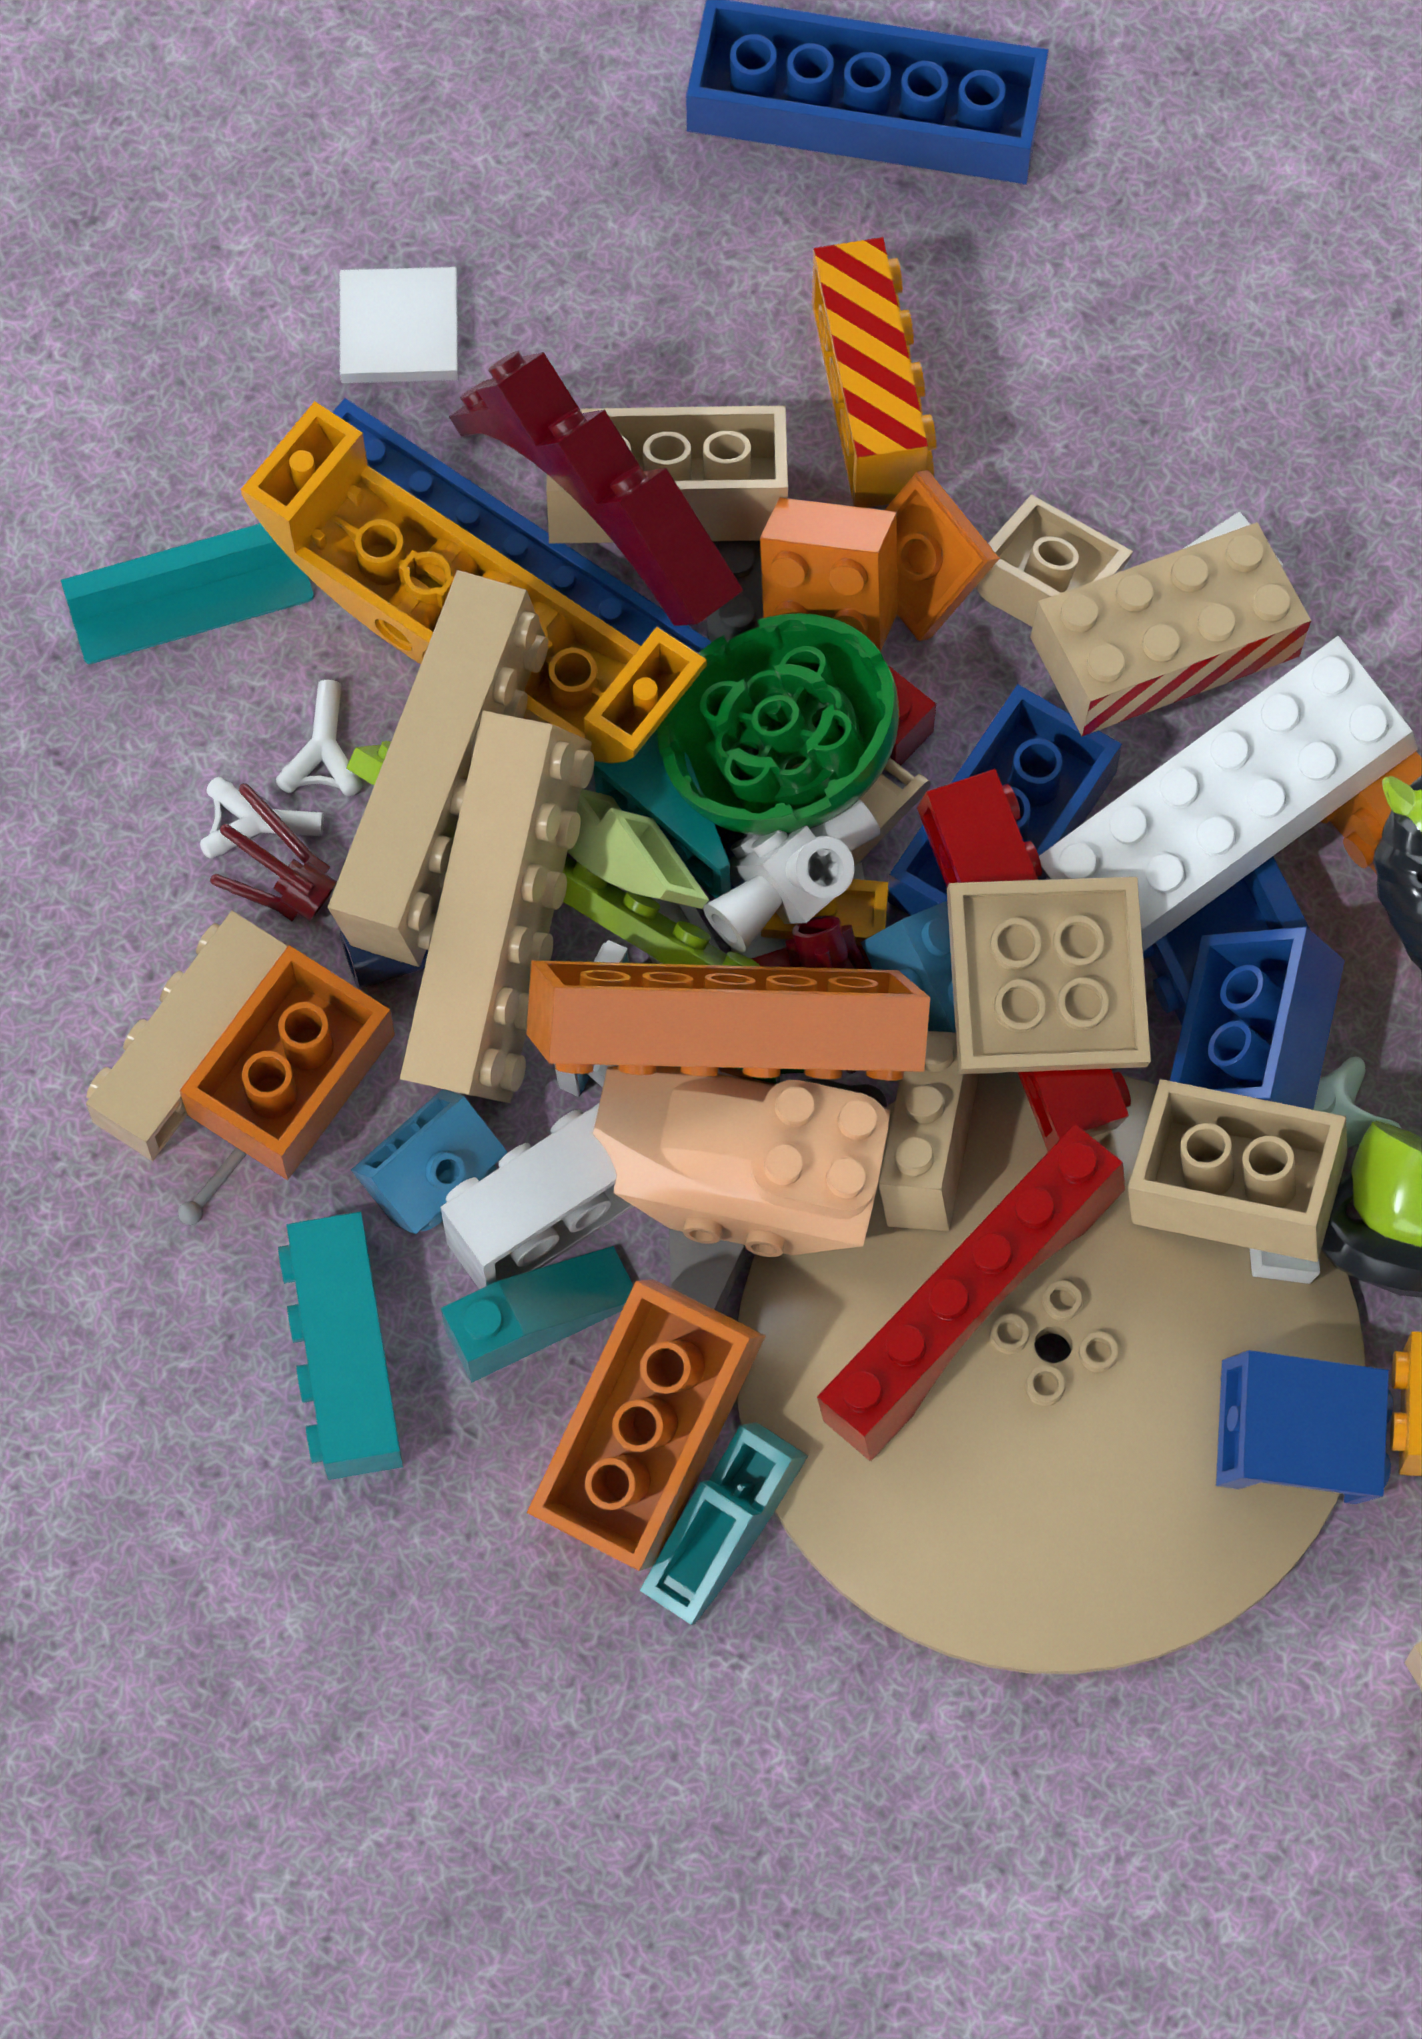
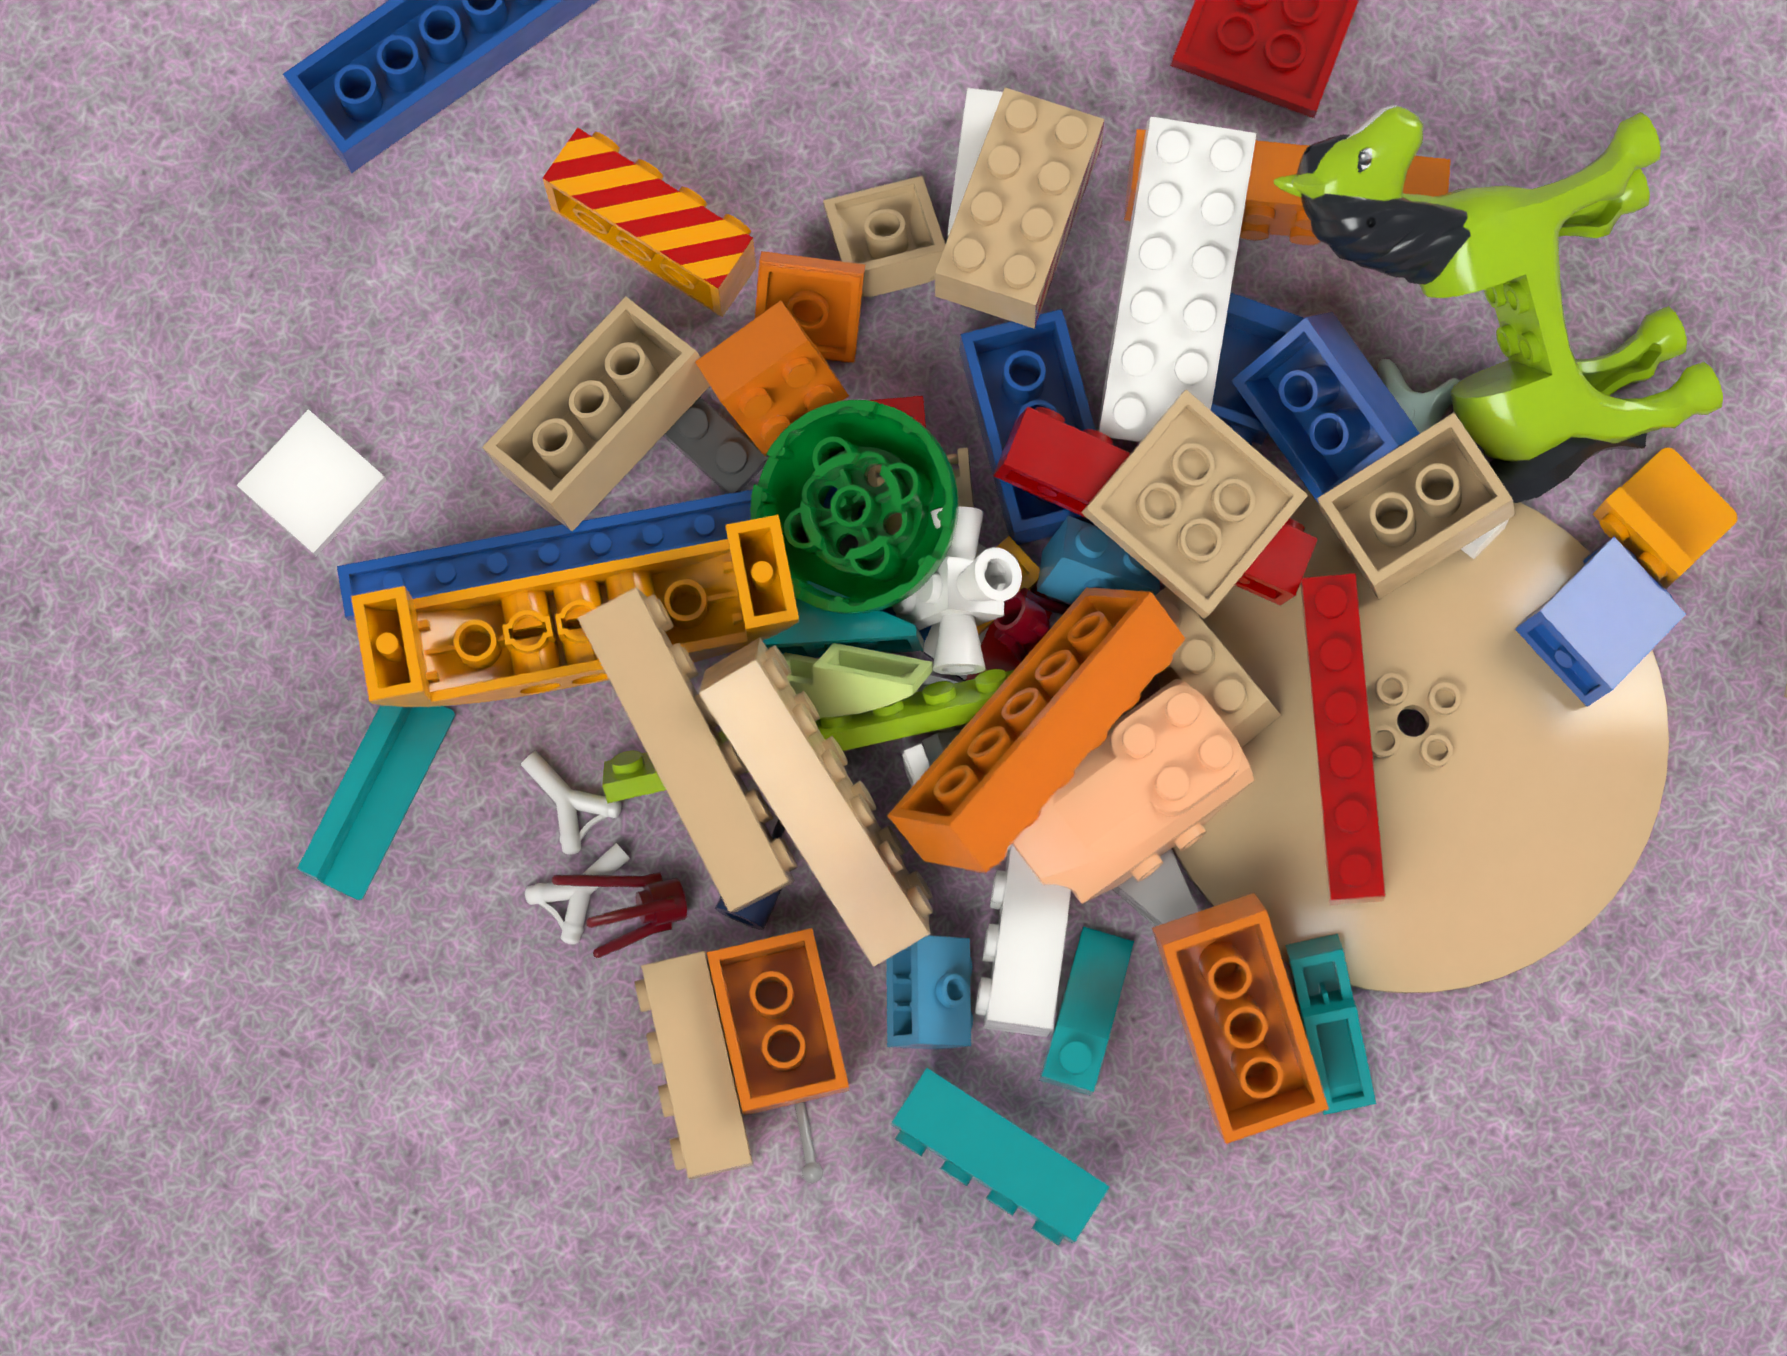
camera: 50 degrees left, 10 degrees up
(590, 460) = (555, 456): dark red arch -> none

